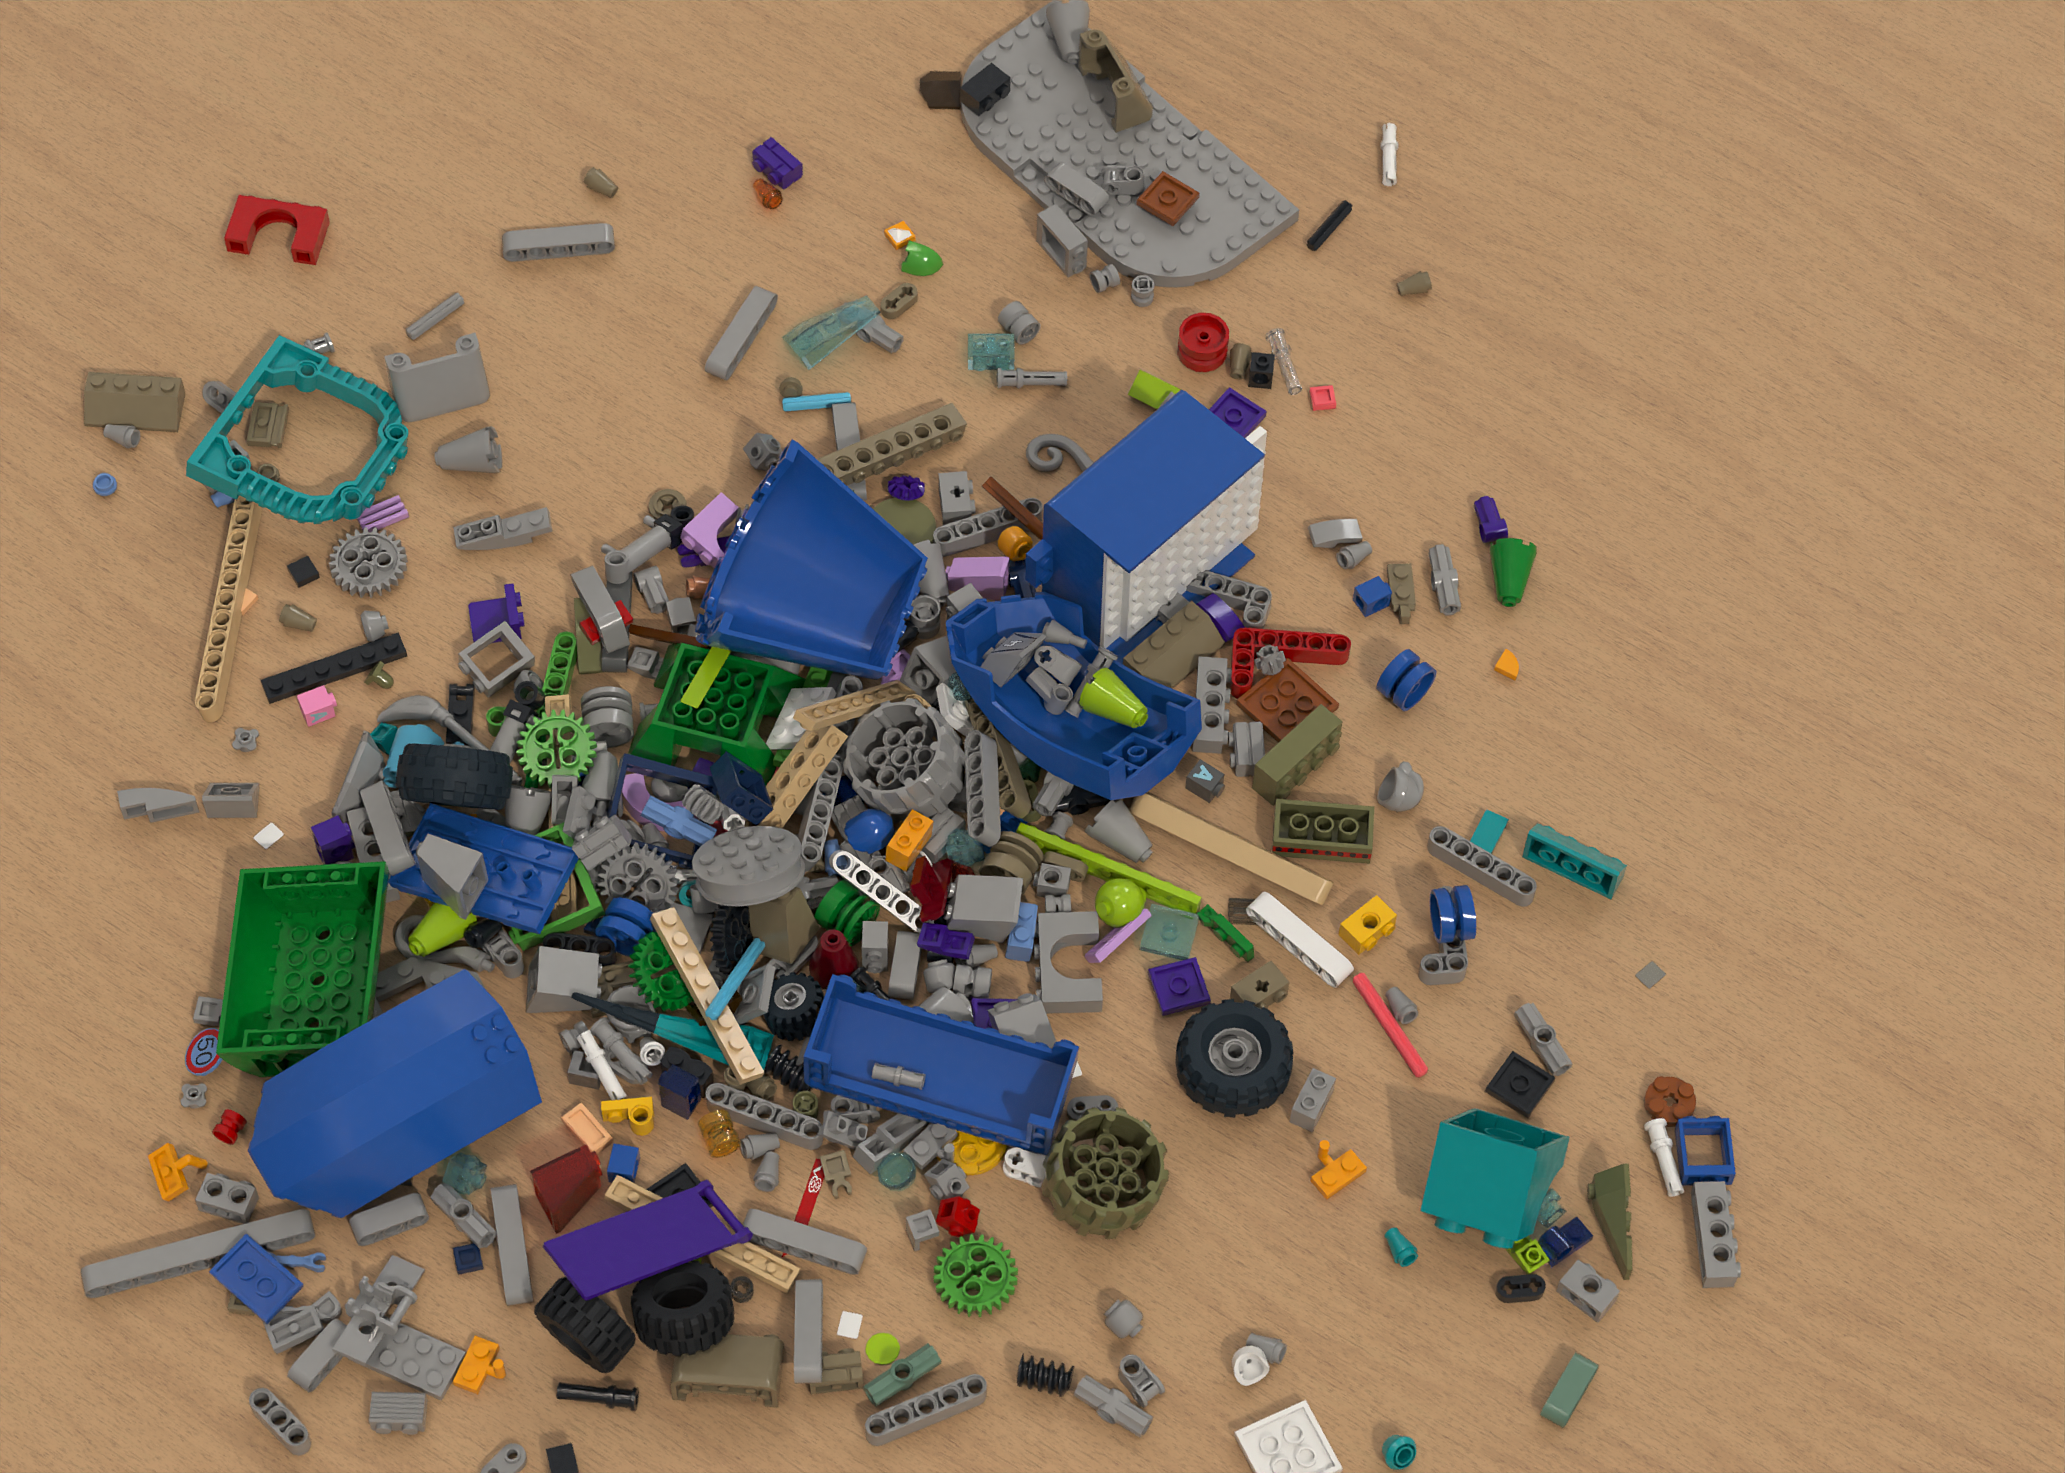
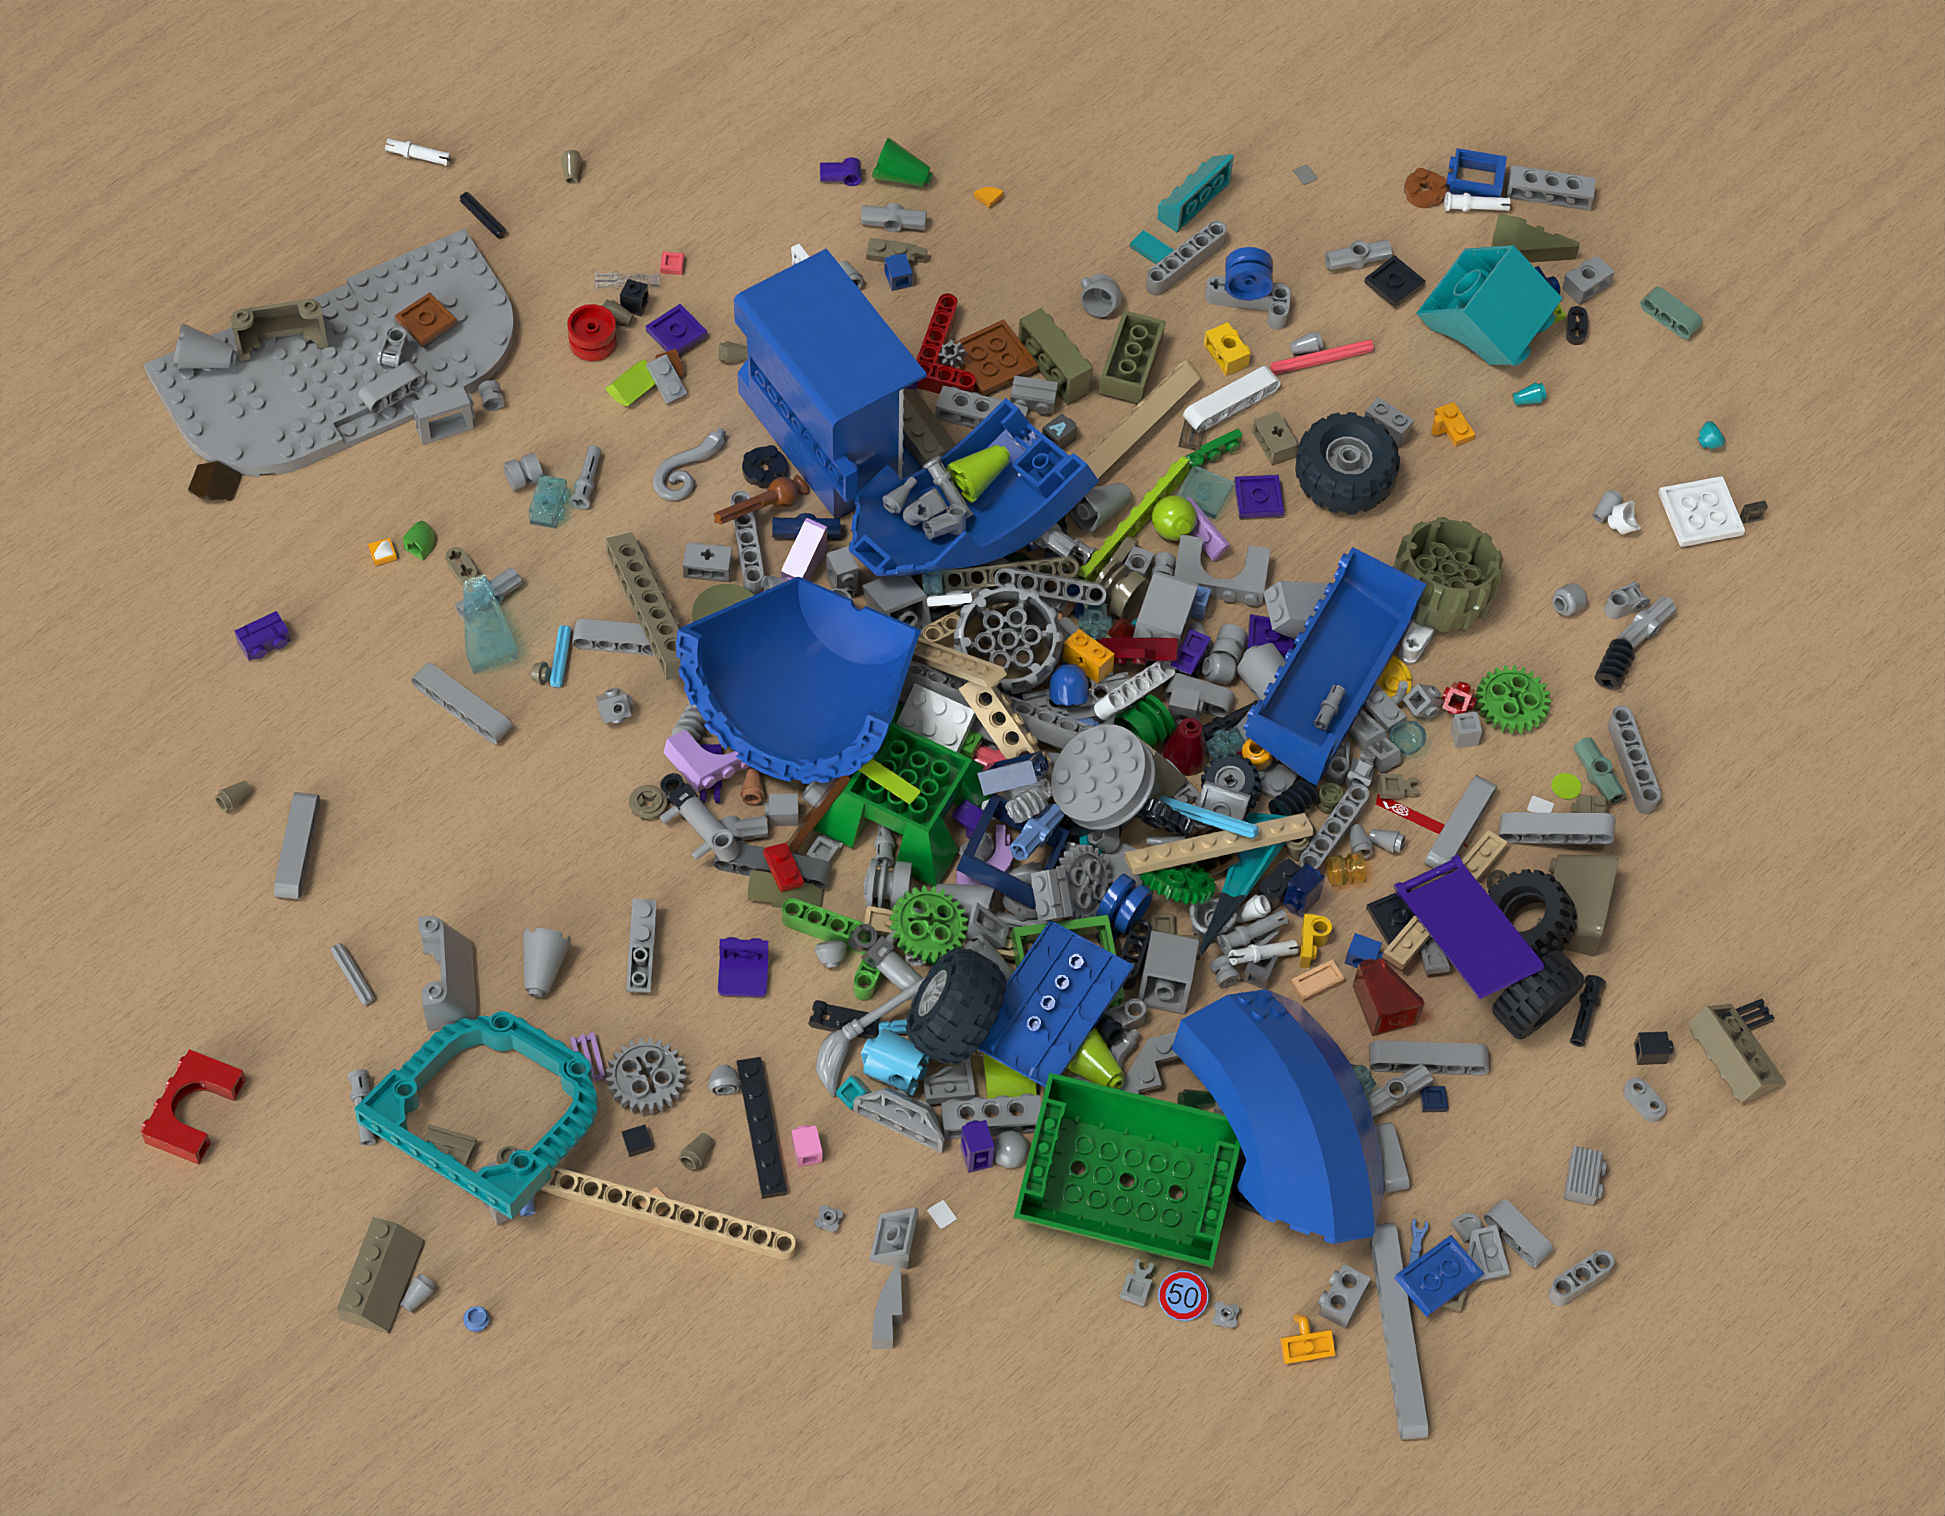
camera: 80 degrees left, 0 degrees up
(218, 401) = (400, 1187): light grey plate -> none
(229, 1126) = (1267, 1285): red wheel -> none
(380, 677) = (781, 1086): olive piece -> none
(387, 827) = (987, 1082): light grey beam -> none
(392, 1287) = (1481, 1180): light grey piece -> none
(416, 1360) = (1524, 1163): light grey plate -> none
(452, 872) = (1070, 1020): light grey slope -> none
(478, 1365) = (1543, 1106): light orange plate -> none
(516, 646) = (786, 953): light grey window -> none
(581, 811) = (1013, 910): light grey plate -> none
(601, 609) = (771, 861): light grey beam -> none
(768, 194) = (296, 651): clear orange cone -> none
(899, 487) = (690, 602): dark purple gear -> none
(985, 89) = (246, 435): black brick -> none
(1011, 655) = (916, 533): light grey slope -> none
(1014, 543) = (784, 515): light orange head -> none
(1142, 291) = (515, 369): light grey wheel -> none
(1406, 680) = (997, 262): blue wheel -> none

